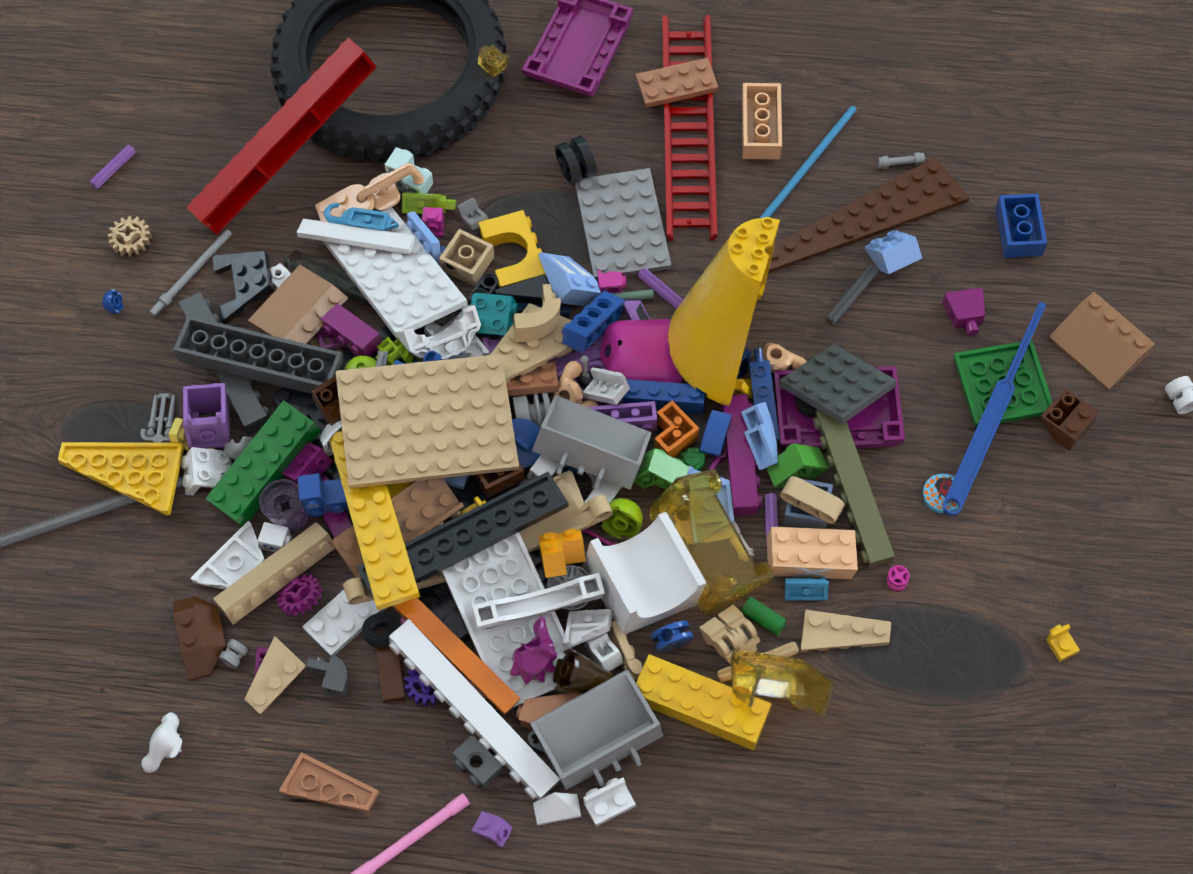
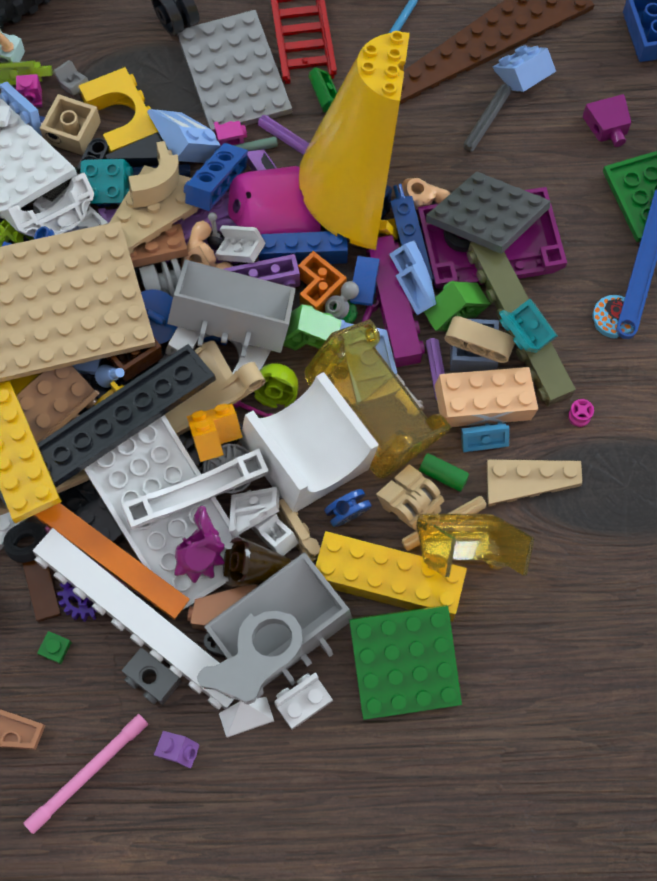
camera: 10 degrees left, 5 degrees up
(395, 726) = (54, 647): none -> green plate
(472, 489) = (106, 374): none -> light blue cone
(561, 766) = (246, 672): none -> light grey animal
(700, 440) = (348, 291): none -> light grey plate
(703, 249) = (323, 87): none -> green brick
(704, 779) = (405, 662): none -> green plate
(857, 494) = (528, 326): none -> teal bracket

